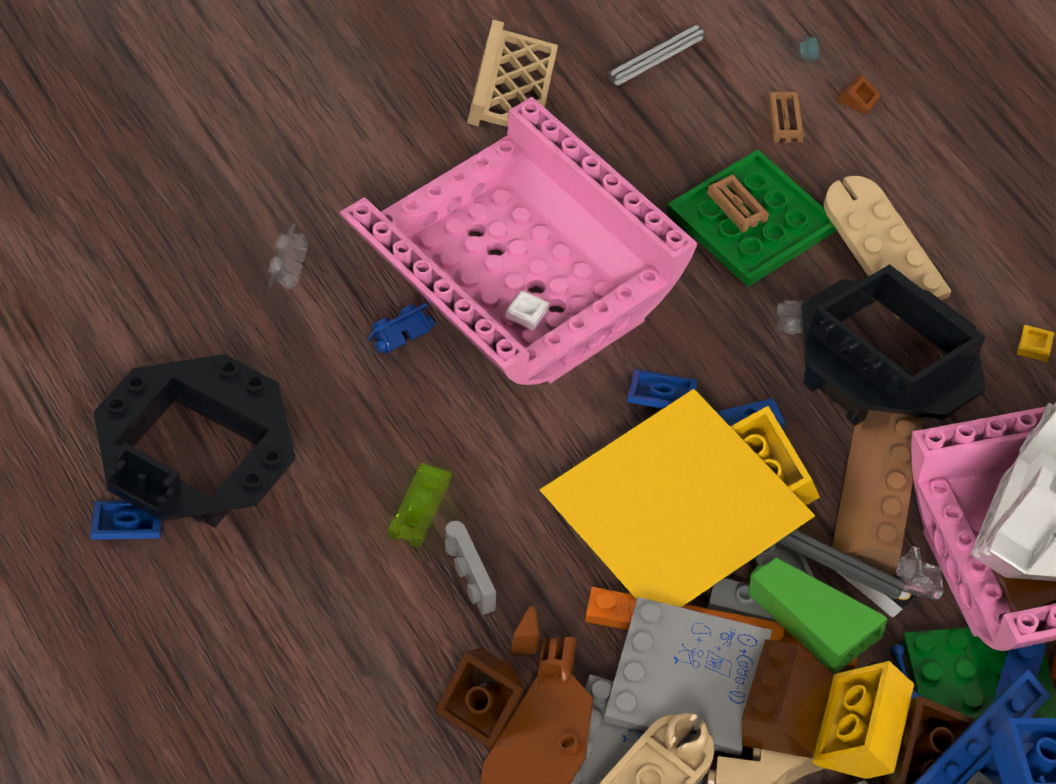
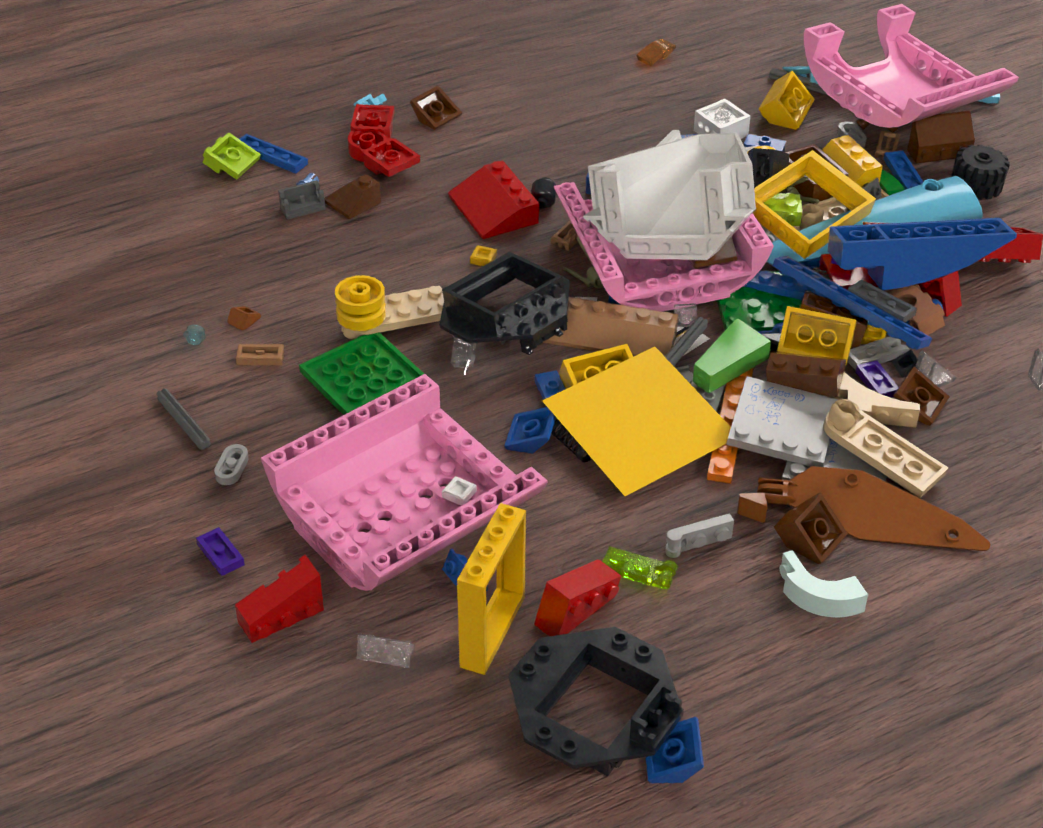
camera: 85 degrees left, 10 degrees down
(306, 350) = (484, 626): none -> yellow window
(347, 160) = (282, 603): none -> red wedge
(358, 430) = (575, 597): none -> red wedge
(367, 686) = (819, 596): none -> light aqua arch
(433, 105) = (220, 551): none -> dark purple plate
(490, 67) = (195, 514): tan fence -> none
(576, 103) = (231, 464): none -> light grey plate
(733, 204) = (356, 375): medium nougat tile -> none
(851, 182) = (360, 303): none -> yellow wheel

